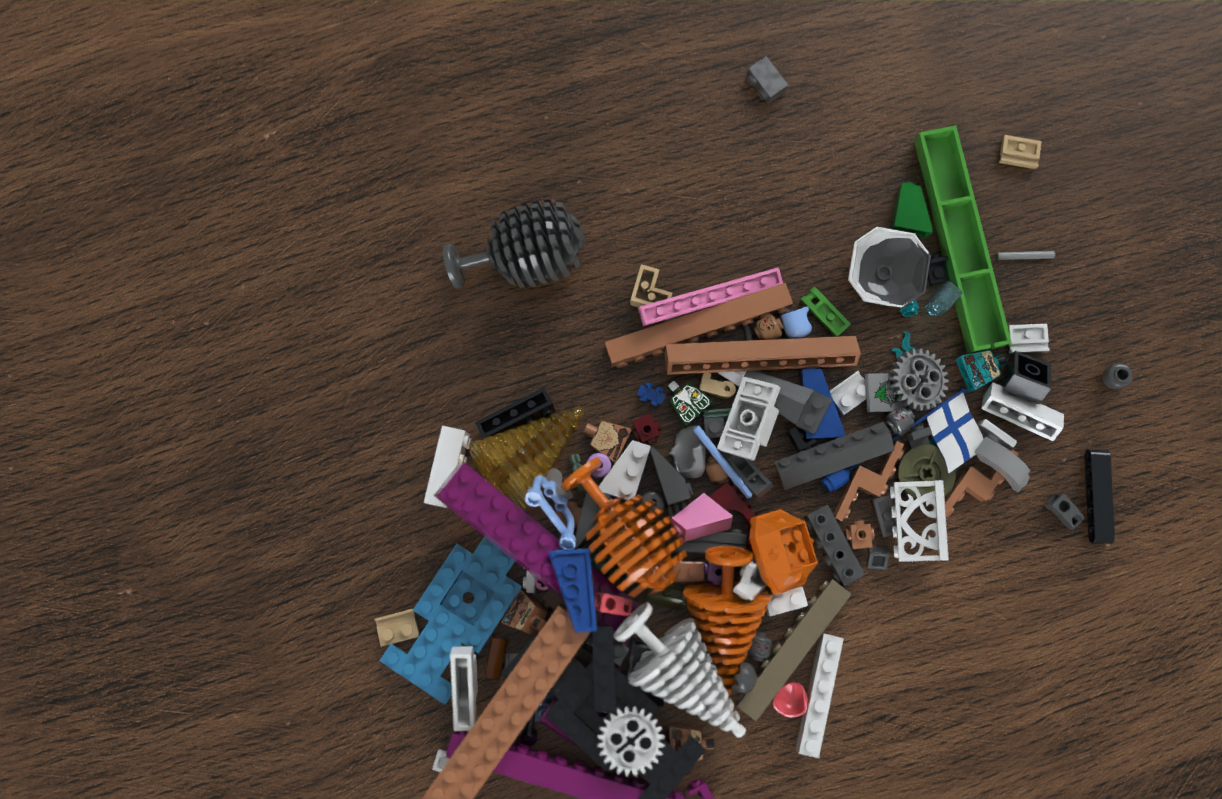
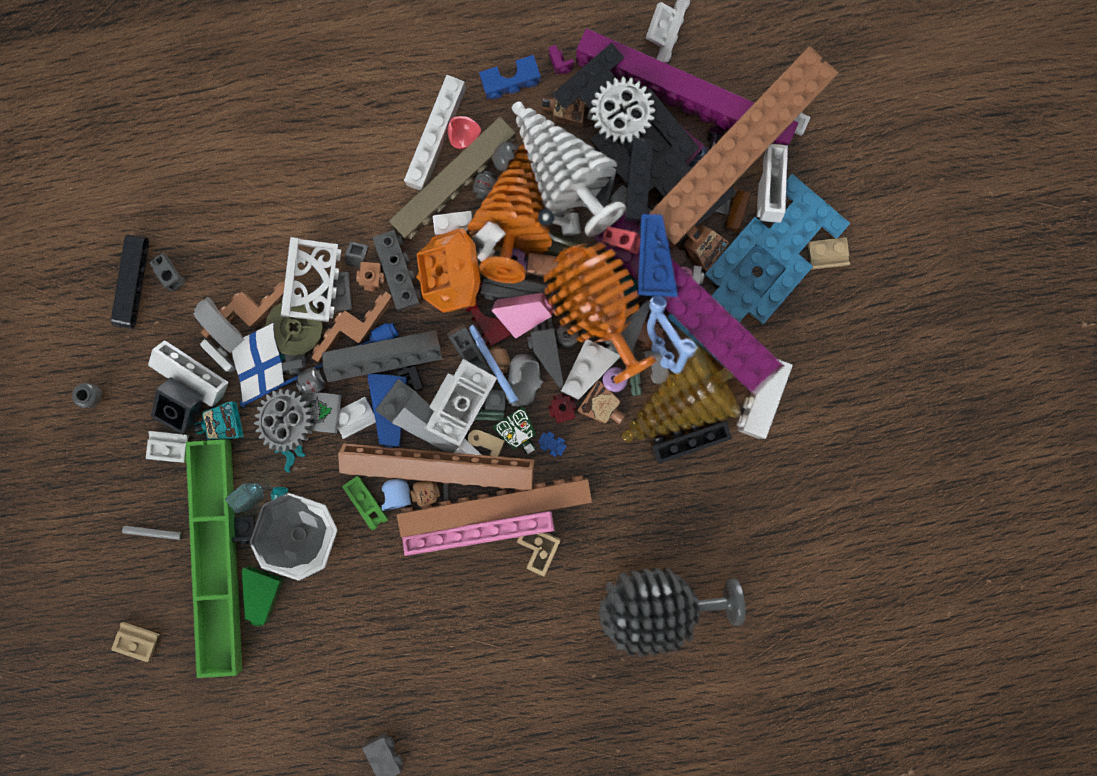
camera: 170 degrees left, 5 degrees up
(667, 618) = (570, 222): none -> white piece
(735, 770) = (497, 85): none -> blue arch

